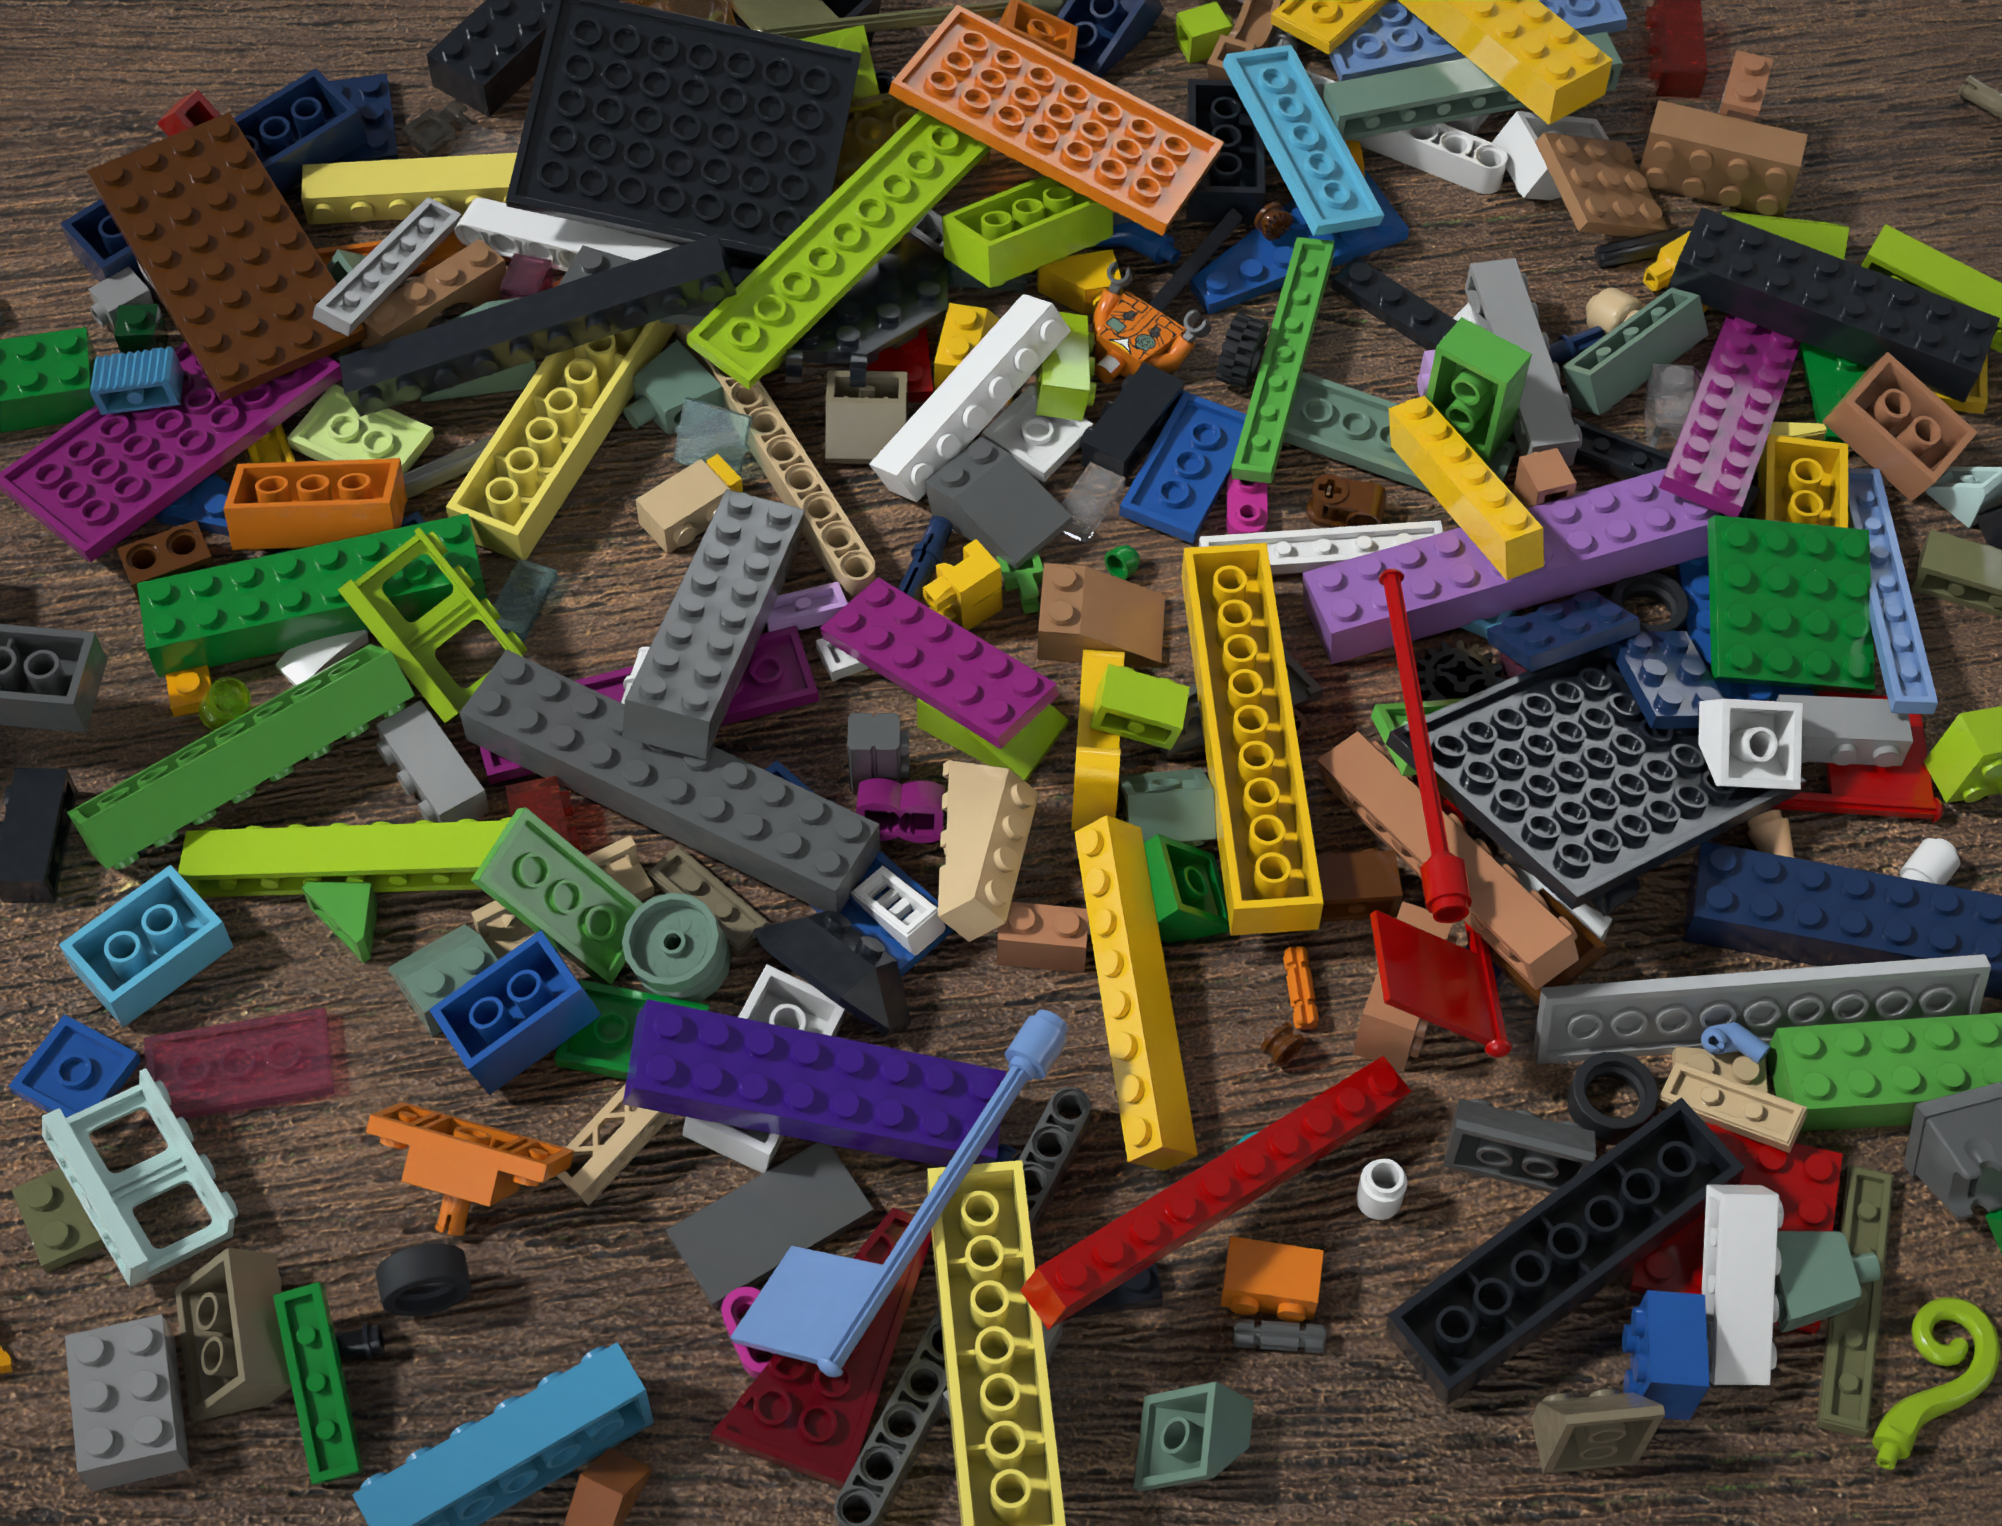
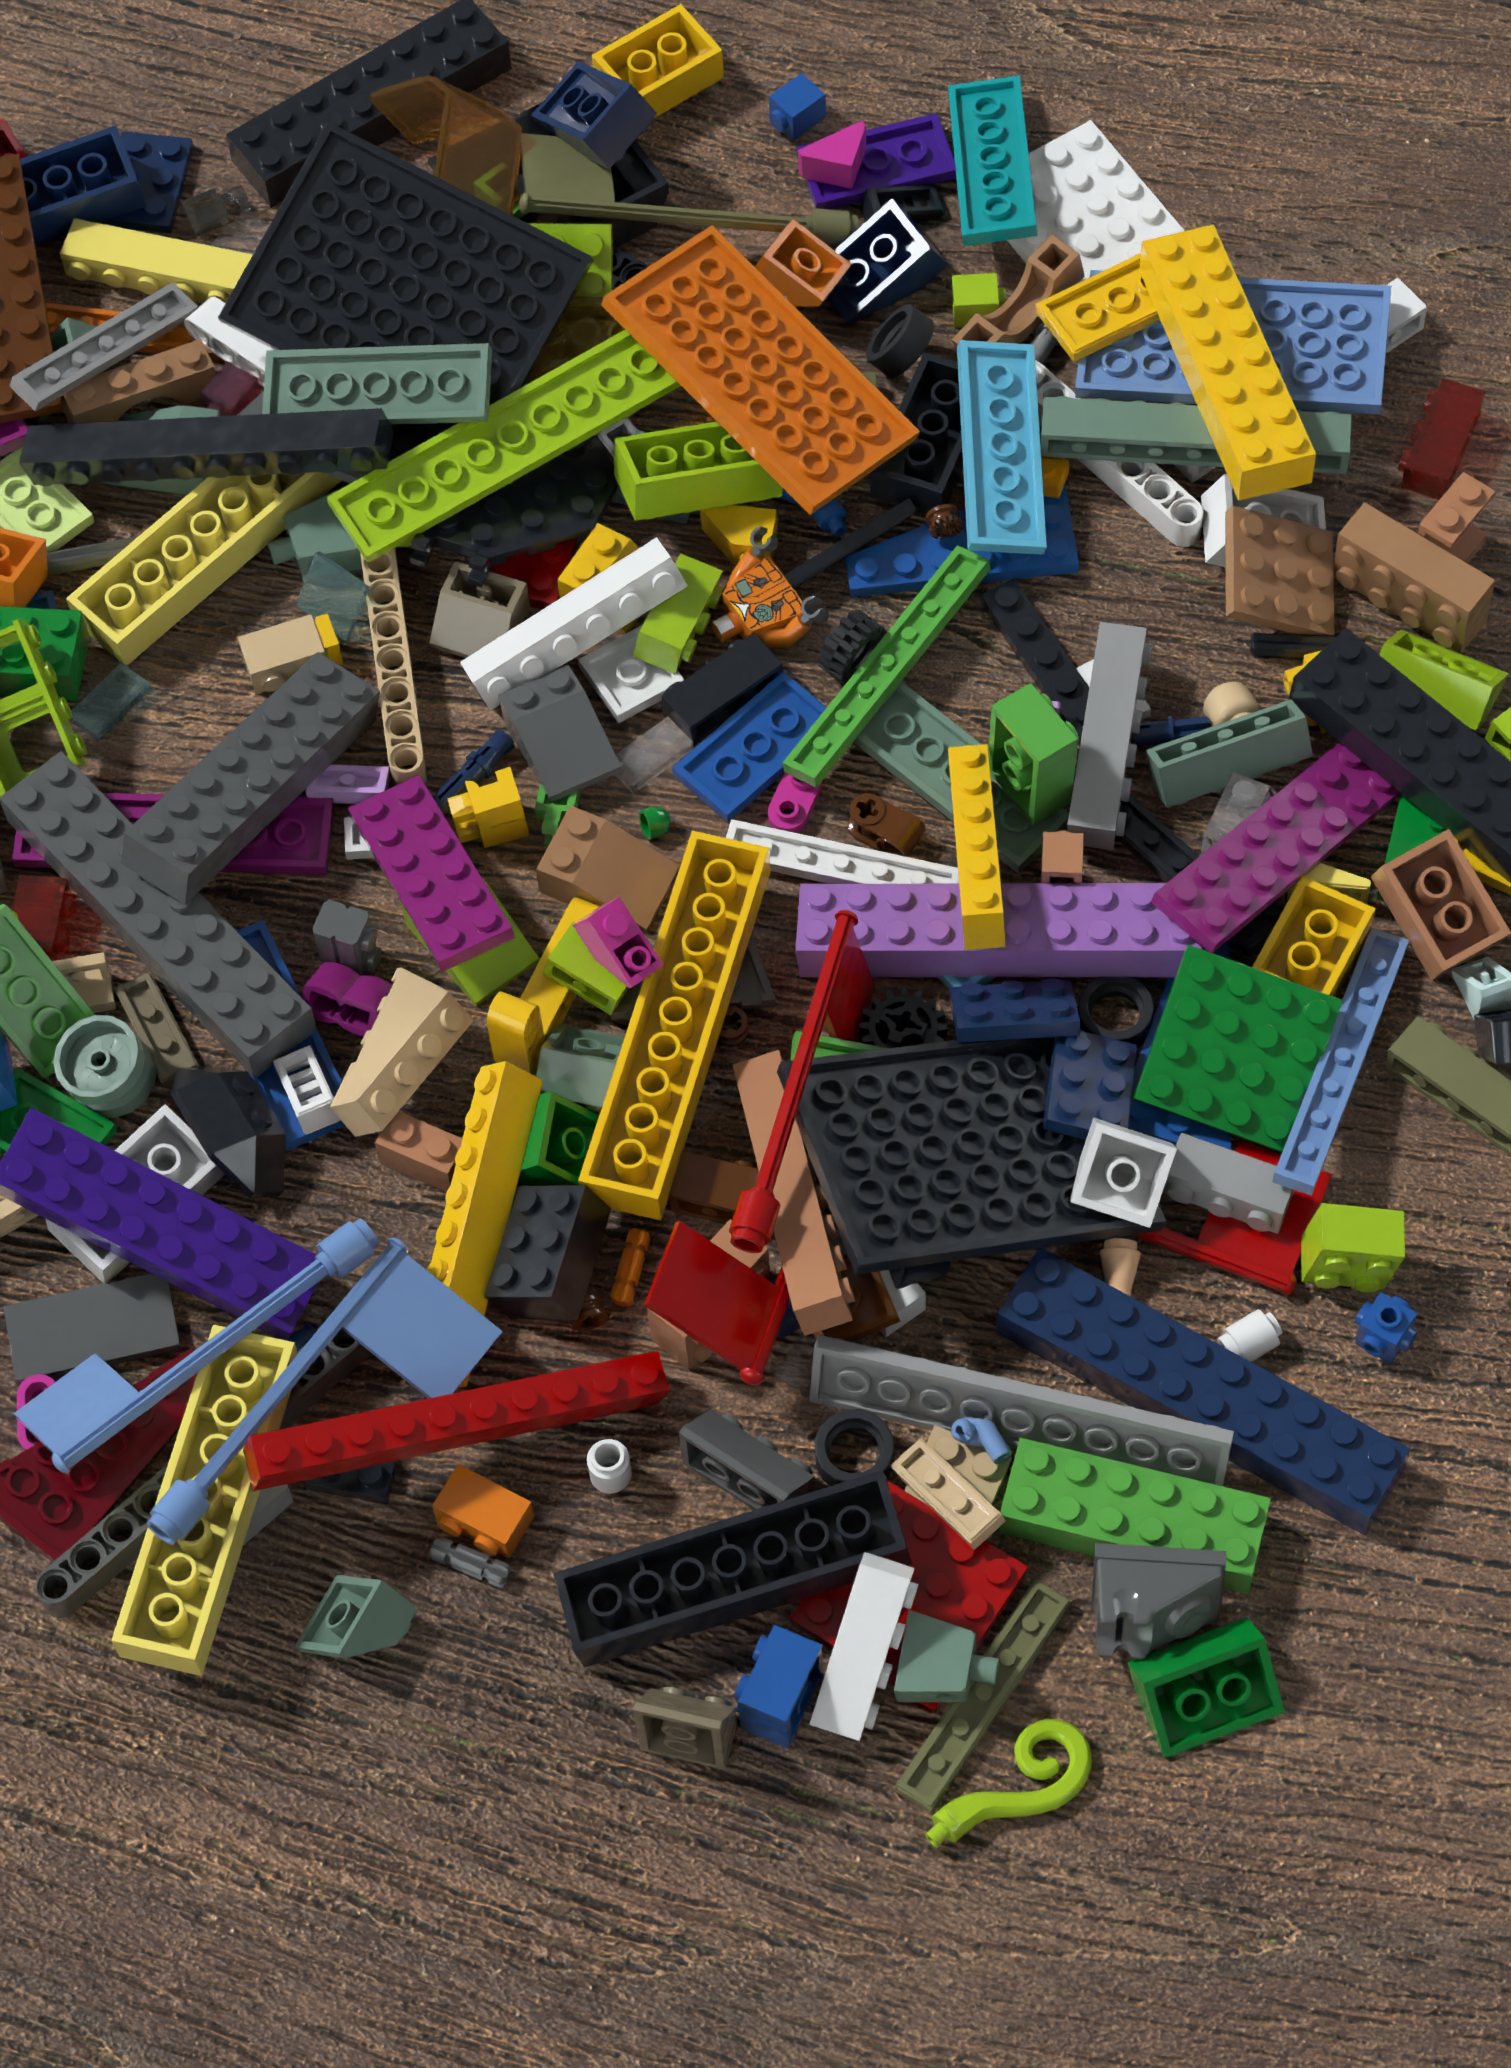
camera: 25 degrees right, 5 degrees up
(738, 205) = (406, 381): none -> sand green plate
(1114, 1102) = (397, 1316): none -> medium blue flag
(1158, 75) = (900, 341): none -> black tyre
(1167, 668) = (618, 942): none -> dark pink slope
(1222, 995) = (548, 1252): none -> black brick

